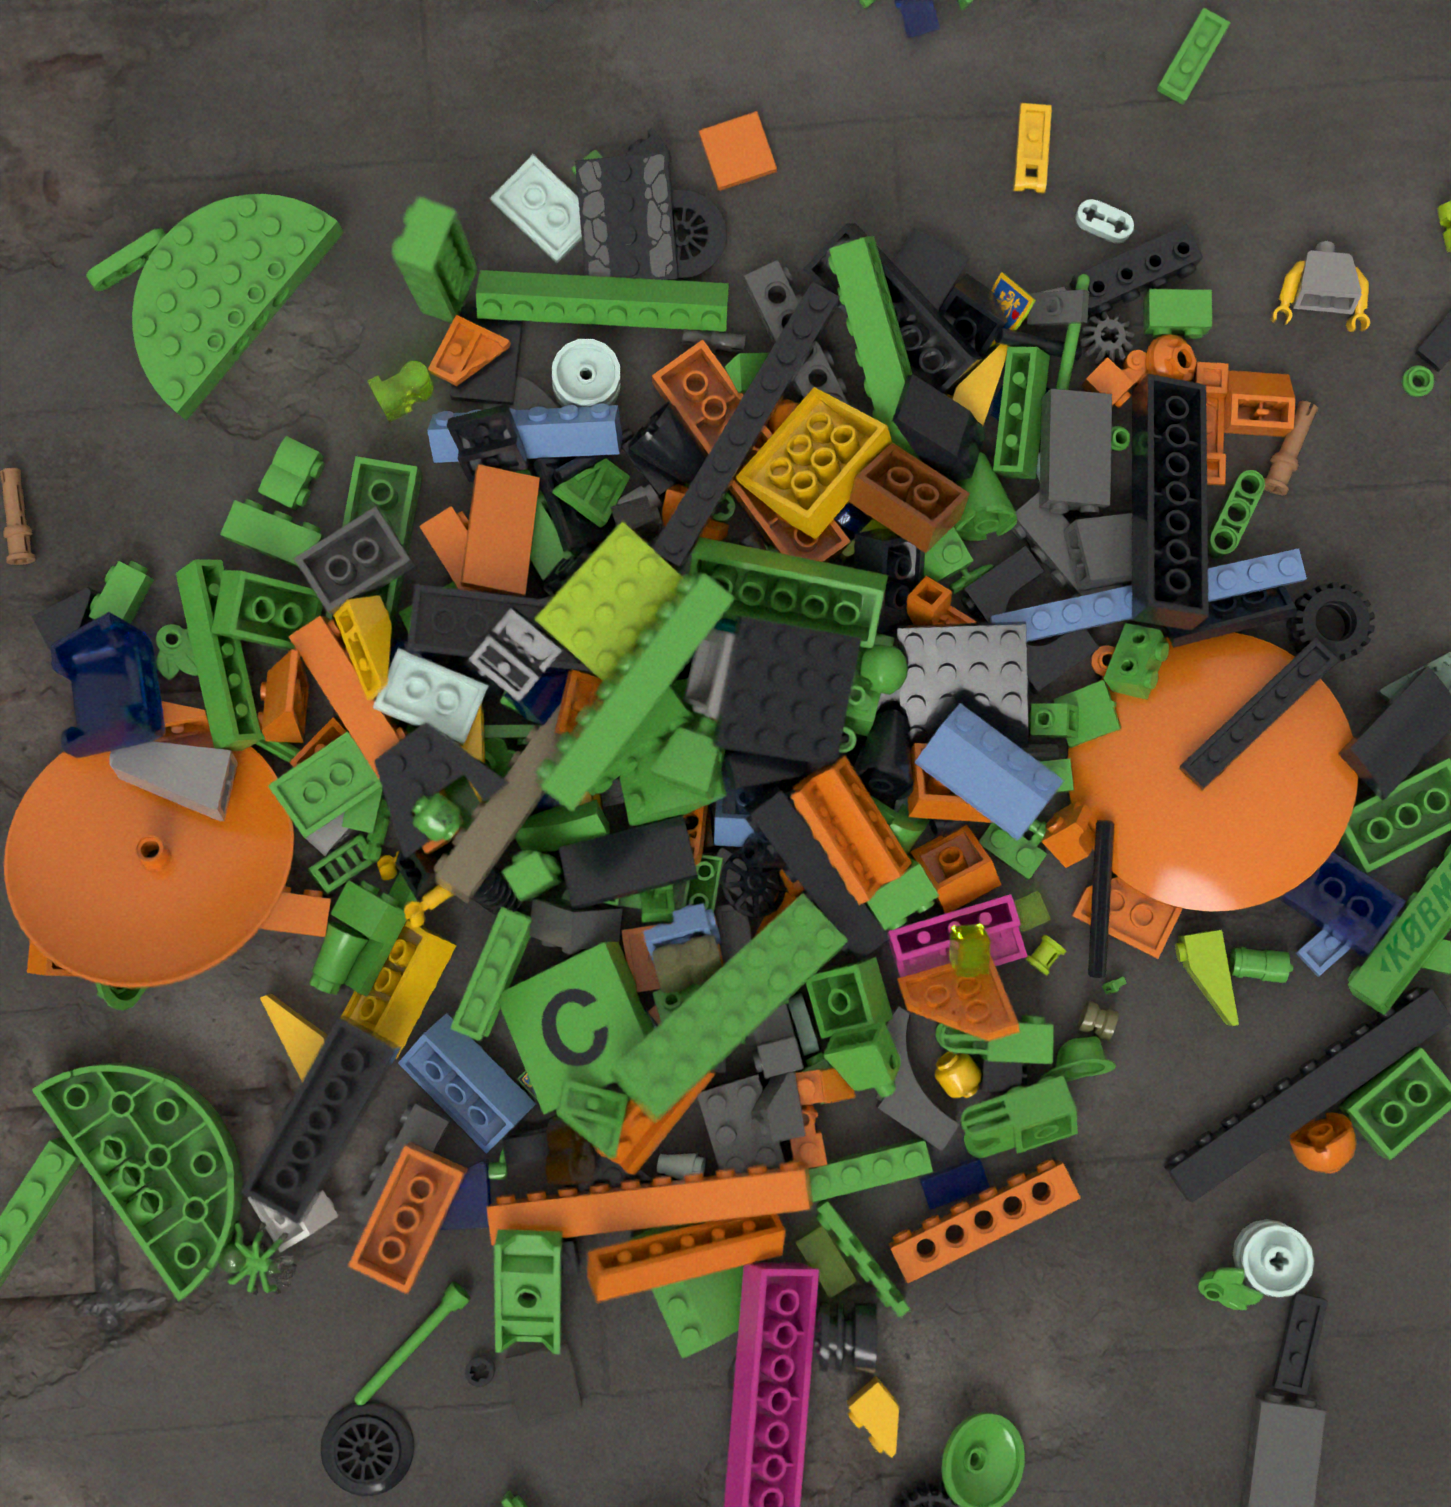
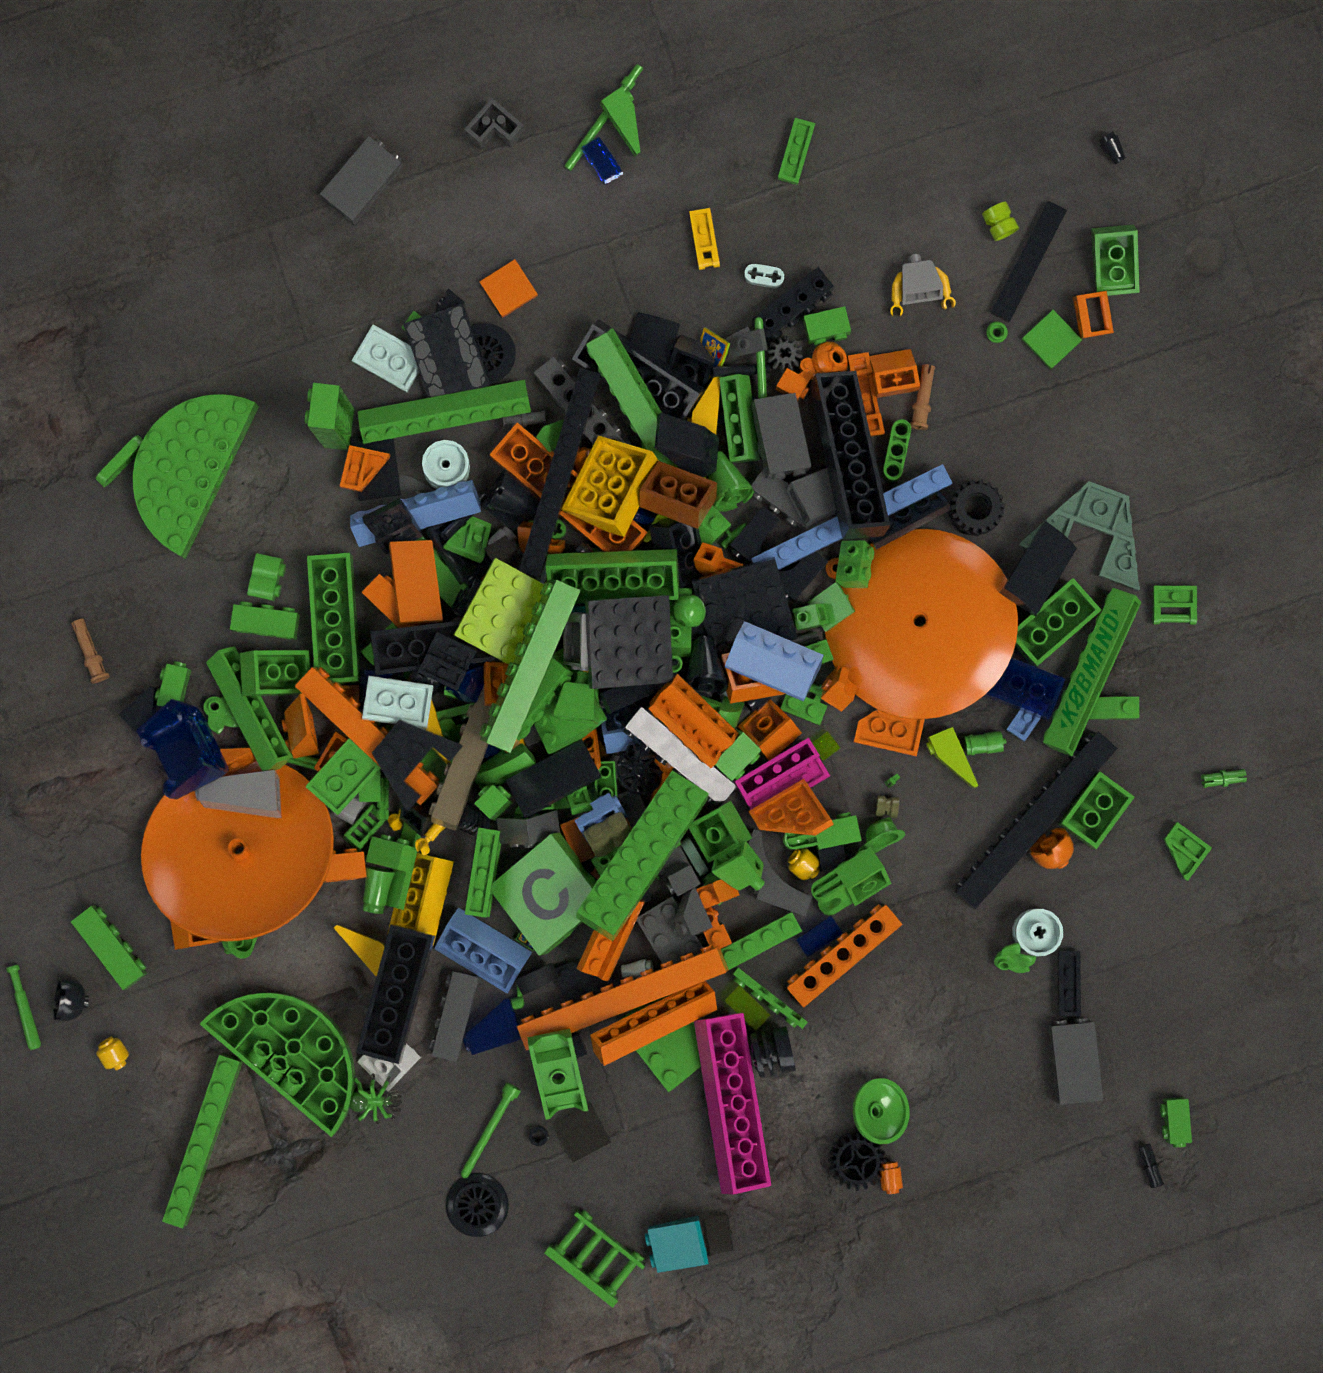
camera: 15 degrees left, 0 degrees up
(354, 560) = (325, 626): dark grey brick -> none
(367, 637) = (347, 675): yellow slope -> none
(402, 390) = (324, 506): clear neon green legs -> none
(408, 1217) = (467, 1044): orange brick -> none
(436, 817) = (422, 779): bright green head -> none
(569, 1155) = (562, 974): dark brown brick -> none
(593, 1114) = (571, 946): bright green wing -> none
(878, 1412) = (806, 1097): yellow slope -> none
(969, 950) = (790, 780): clear neon green brick -> none
(1045, 954) = (842, 772): lime bush -> none
(1101, 899) = (869, 726): black axle -> none
(1119, 438) = (808, 420): bright green pin -> none
(1258, 714) = (941, 579): black tile -> none

